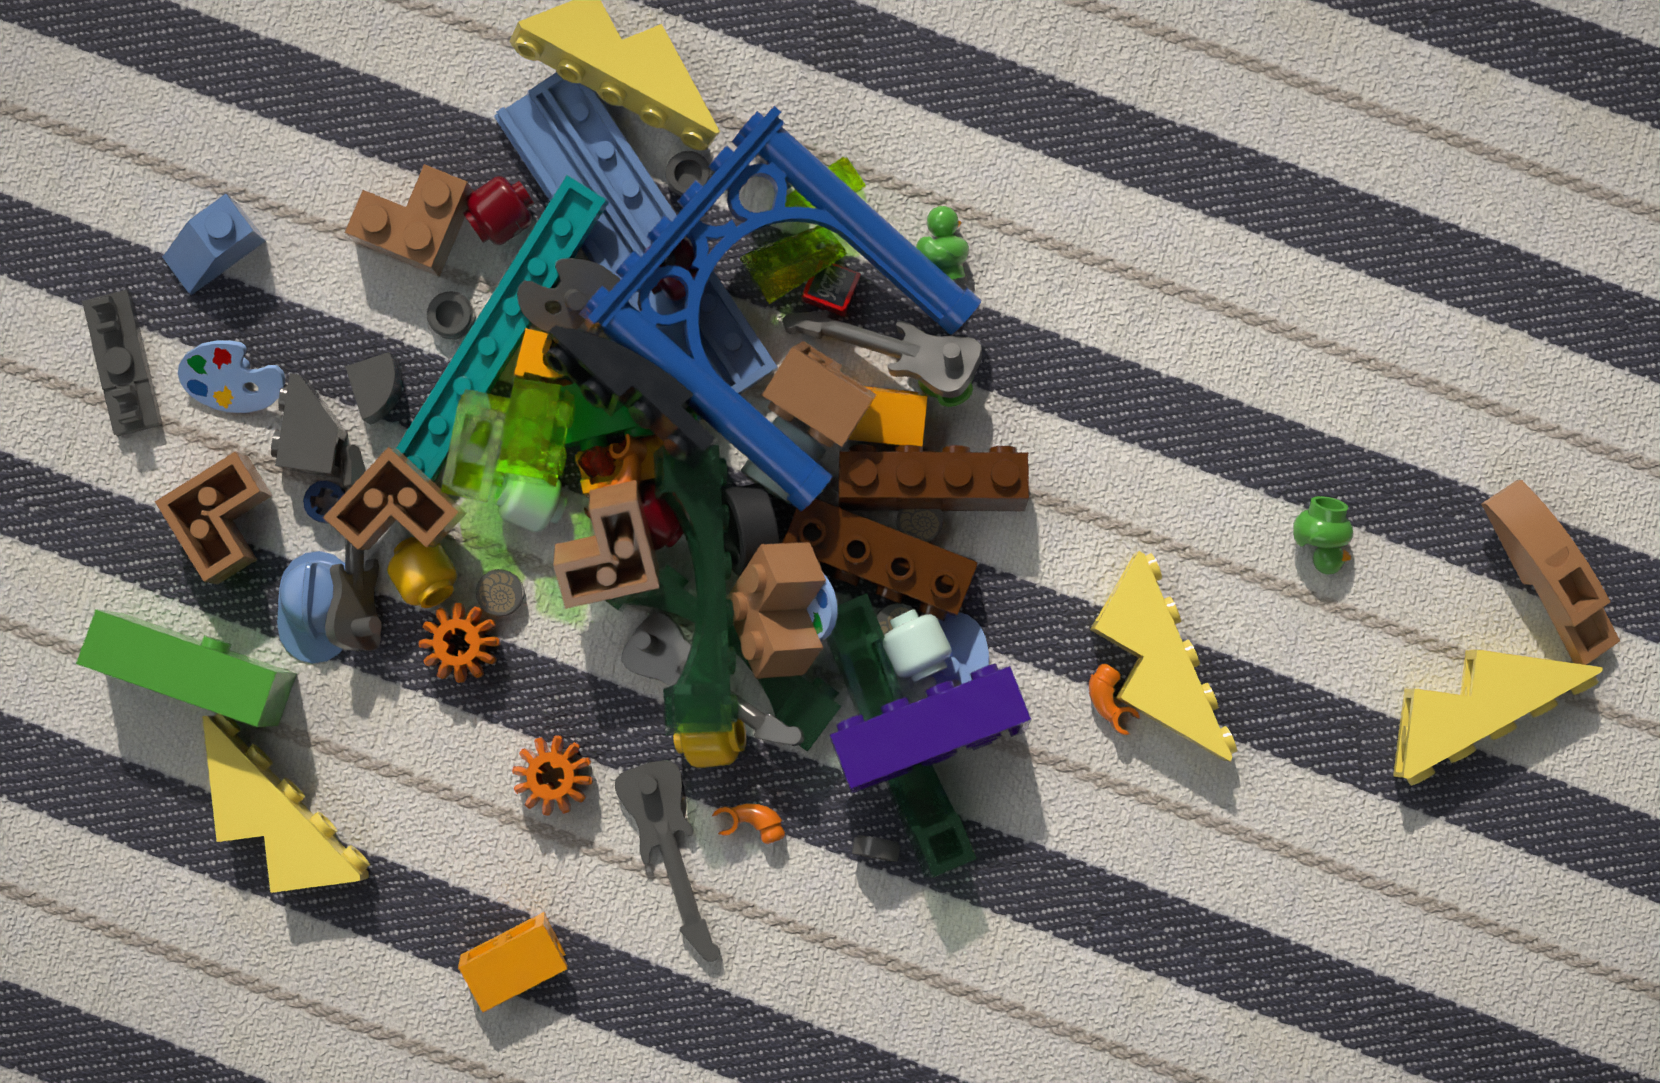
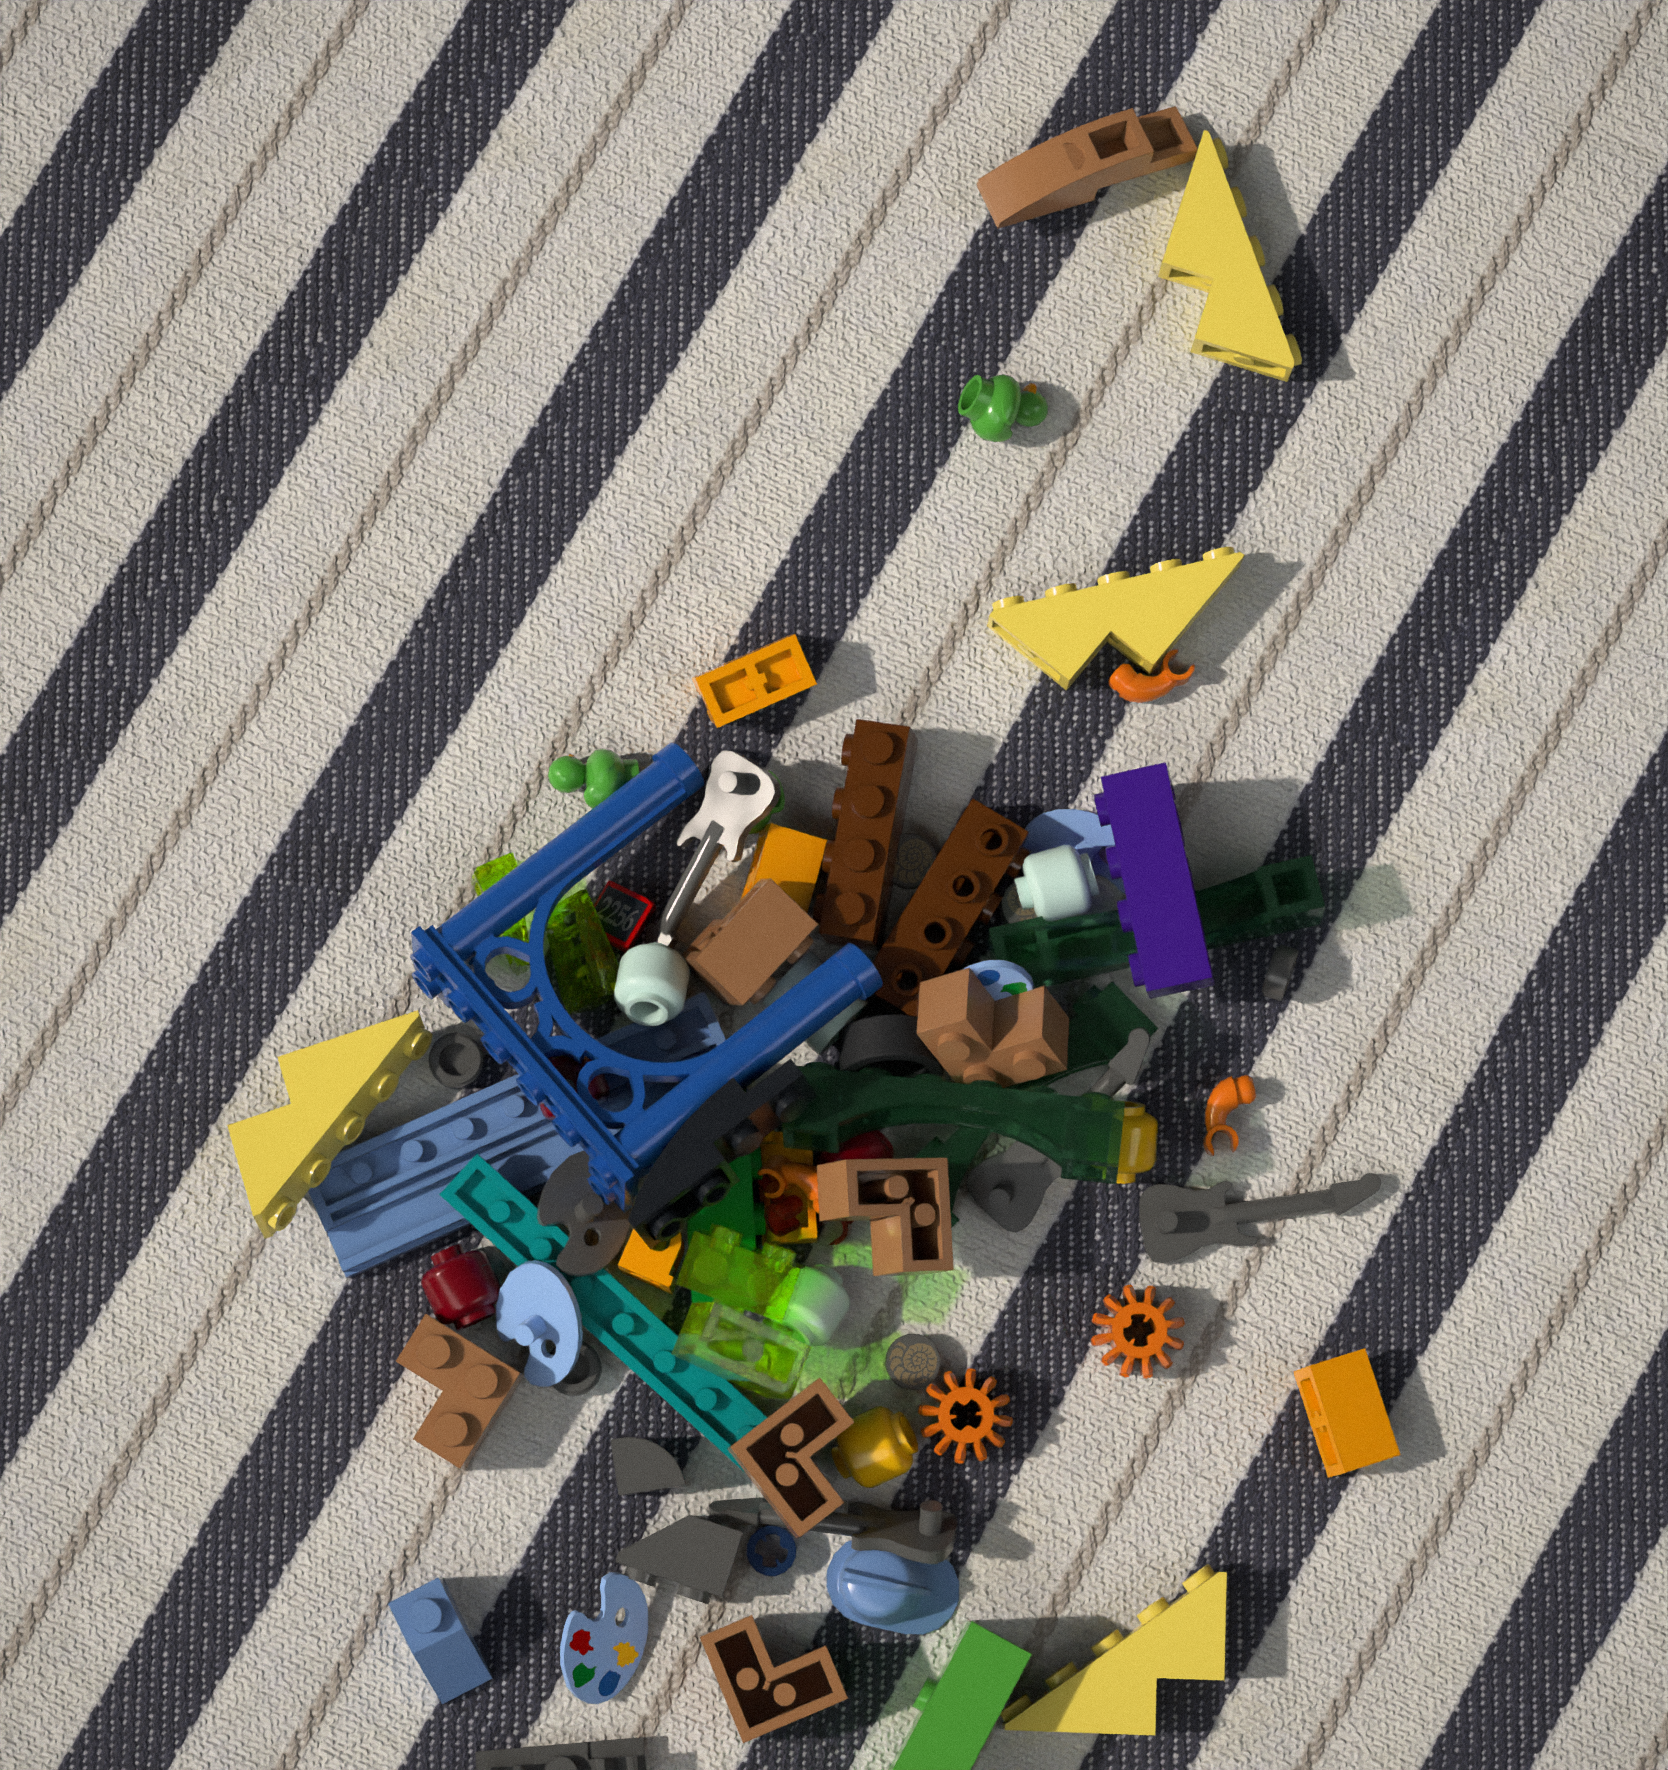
camera: 85 degrees left, 5 degrees down
(485, 270) = (540, 1307): none -> light blue piece
(773, 319) = (651, 984): none -> light aqua head
(1048, 363) = (754, 680): none -> light orange hinge

